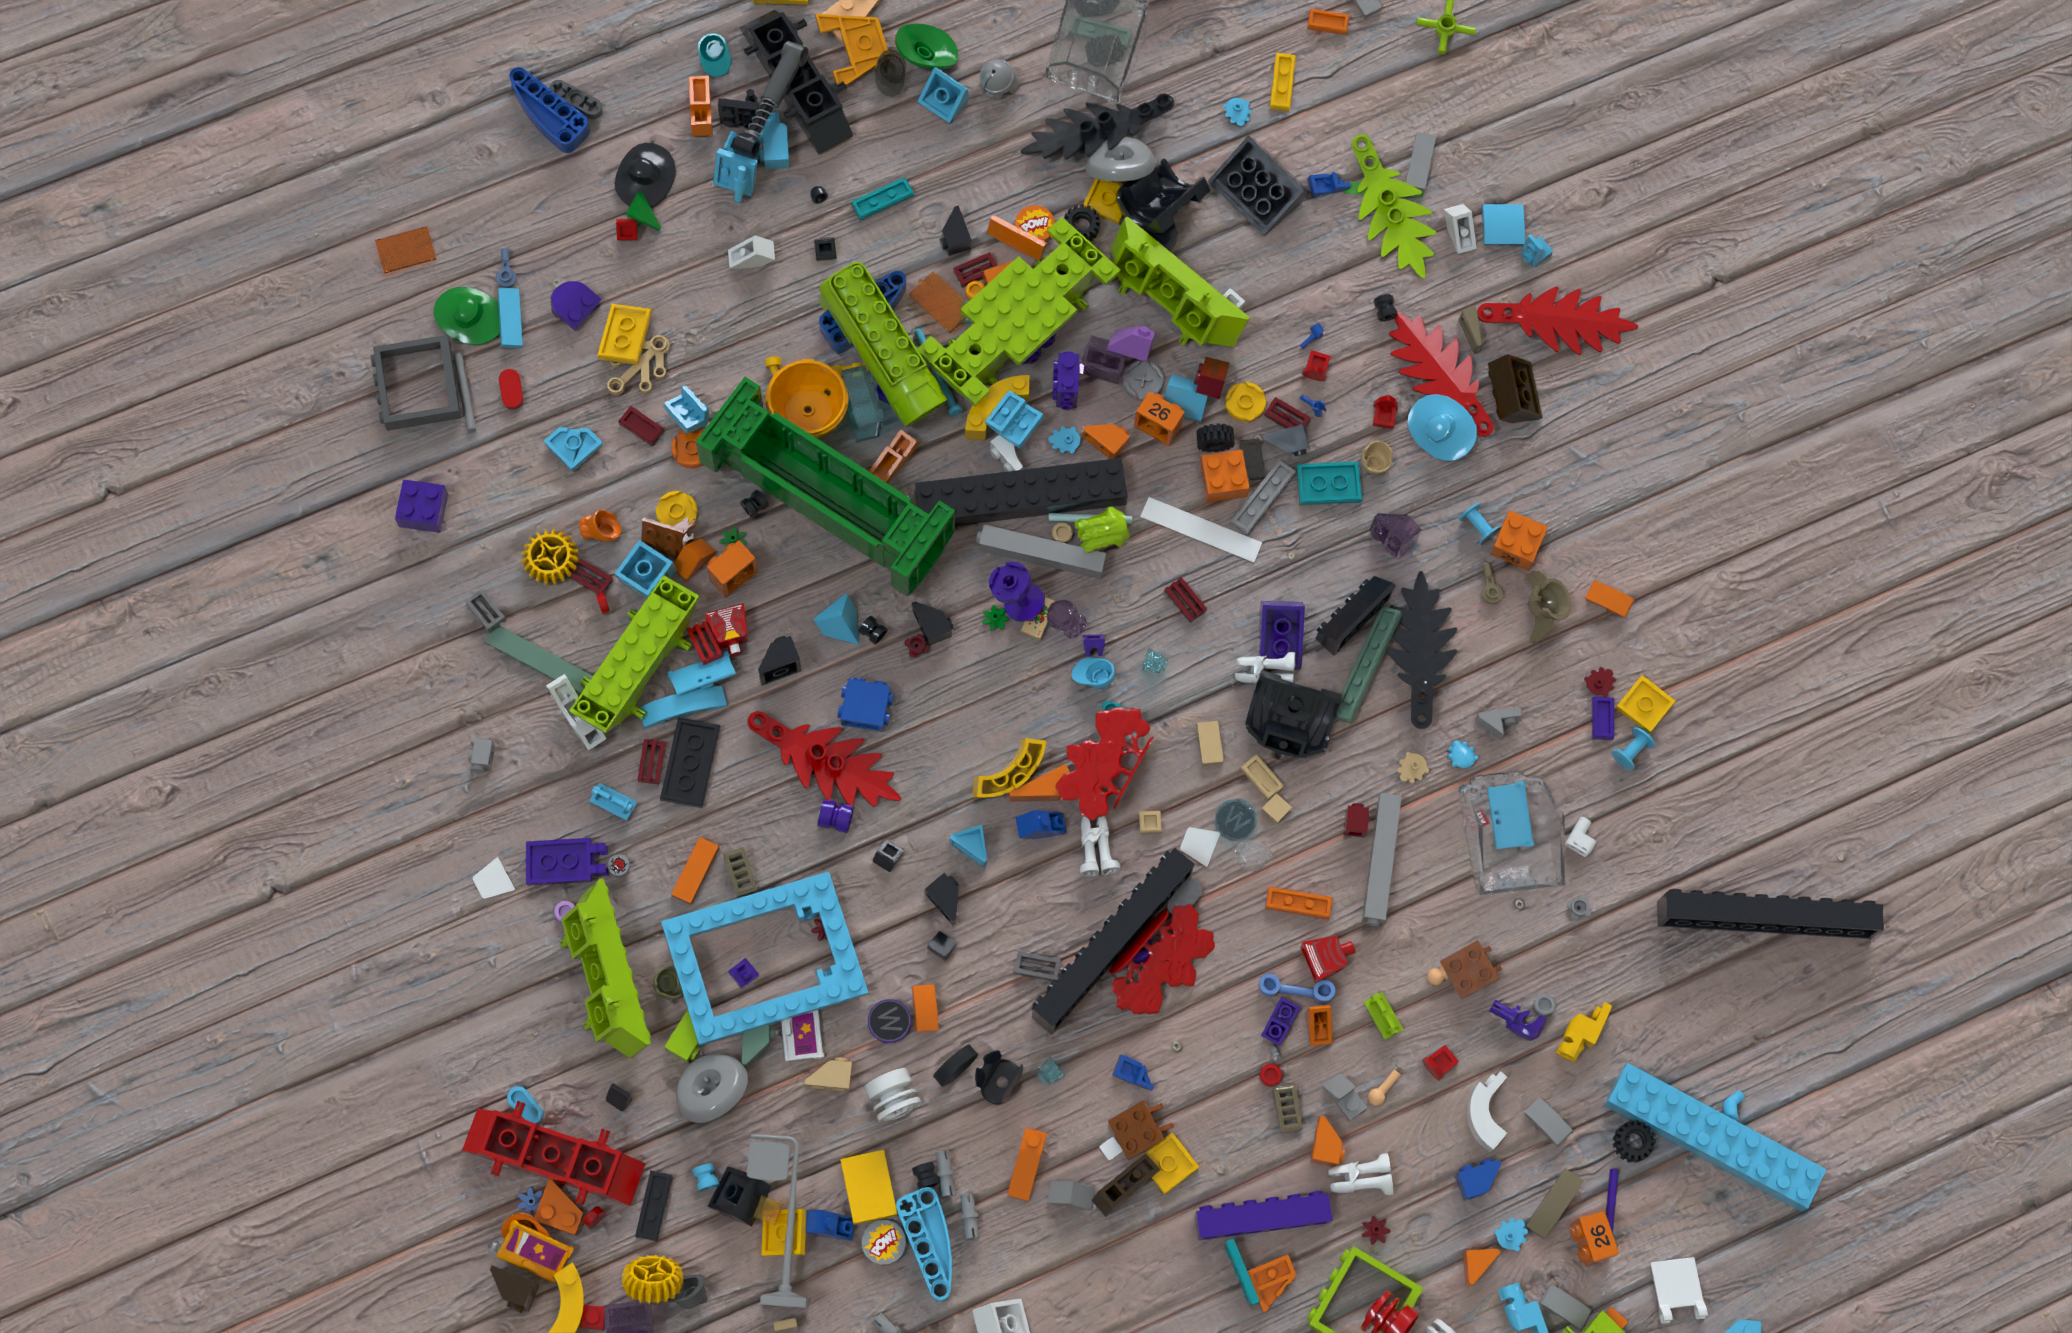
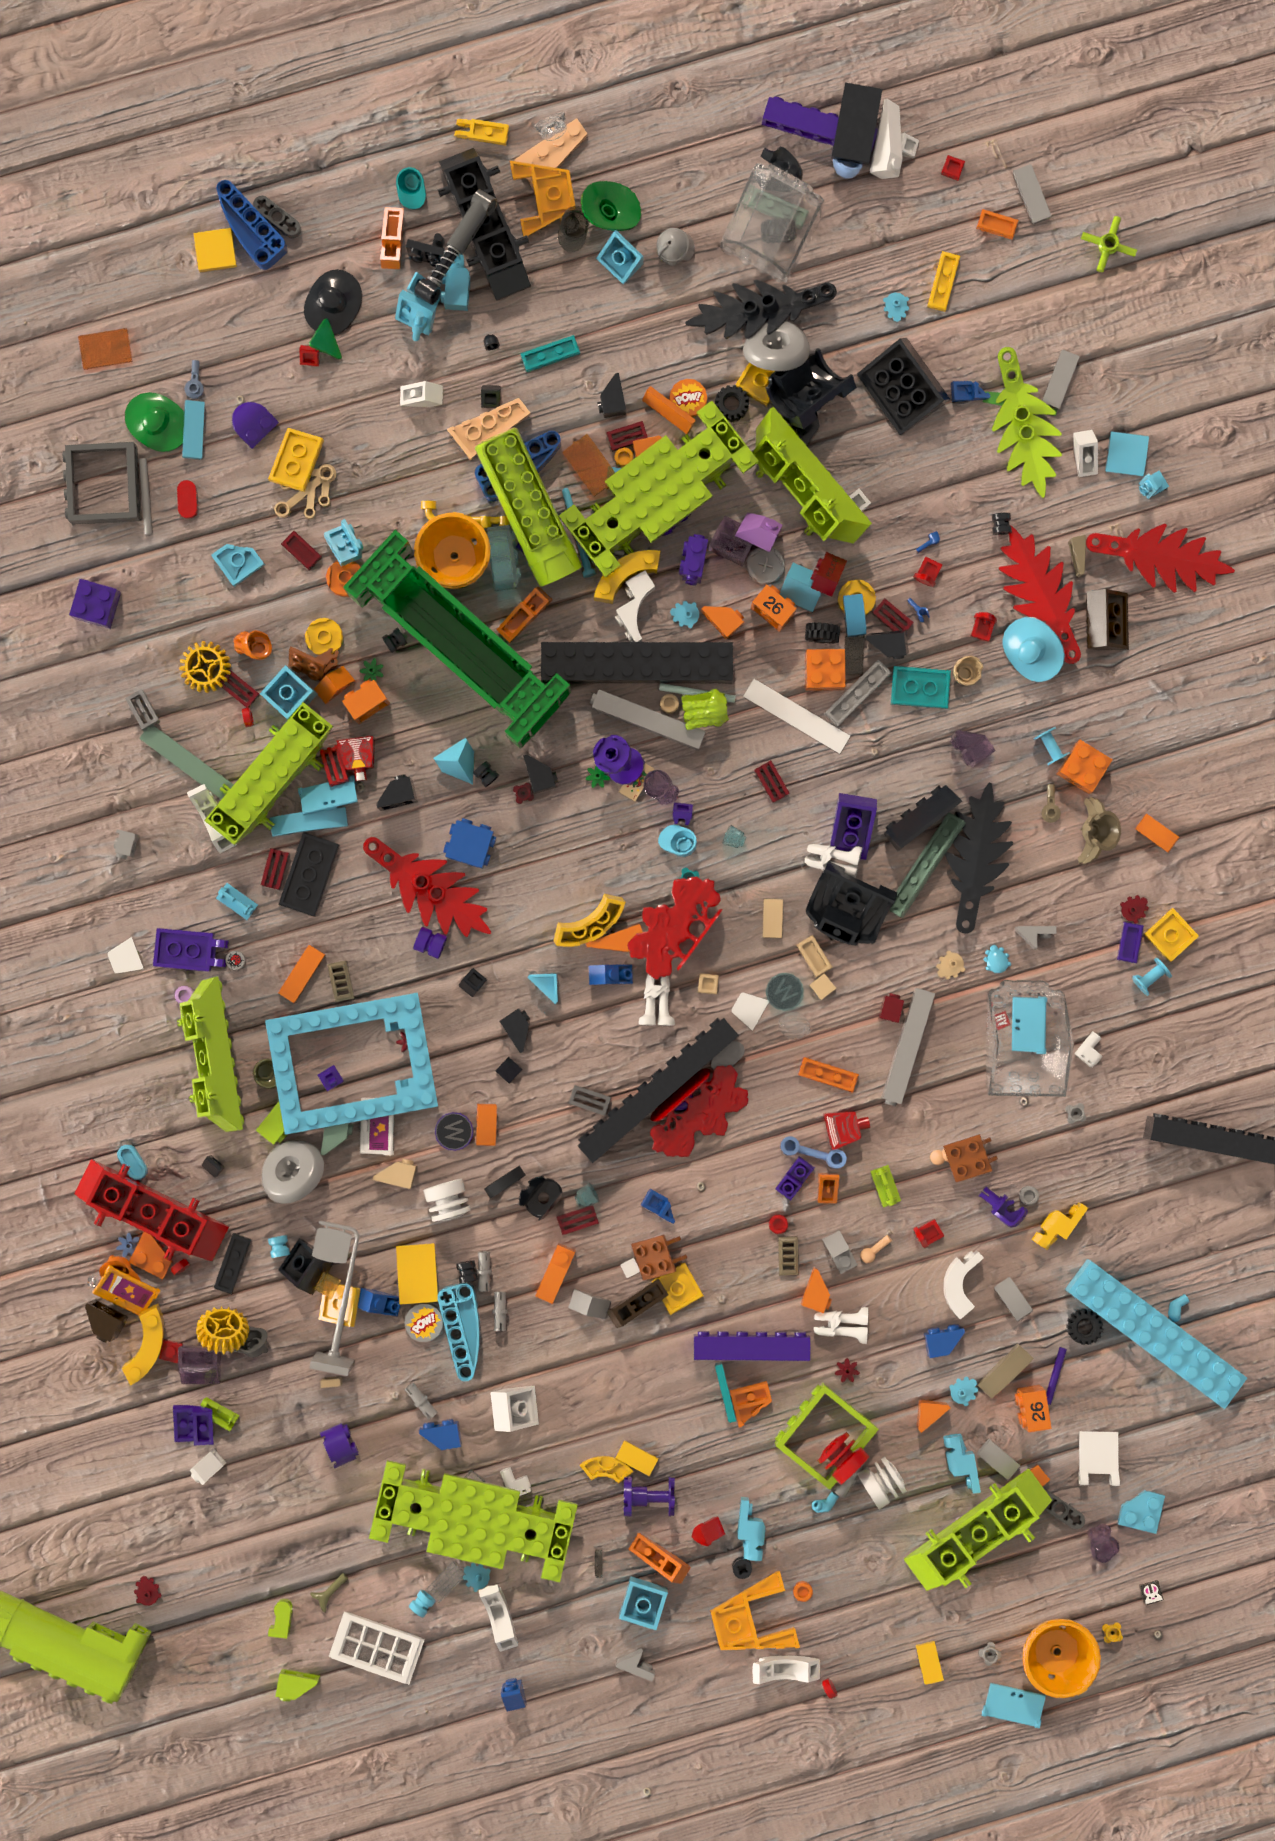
camera: 15 degrees right, 15 degrees up
(513, 139) = (215, 250): none -> yellow tile
(807, 284) = (488, 425): none -> light nougat wing
(1014, 419) = (640, 592): medium azure slope -> none
(1022, 1102) = (562, 1224): none -> dark red tile
(1247, 416) = (854, 615): none -> dark azure slope

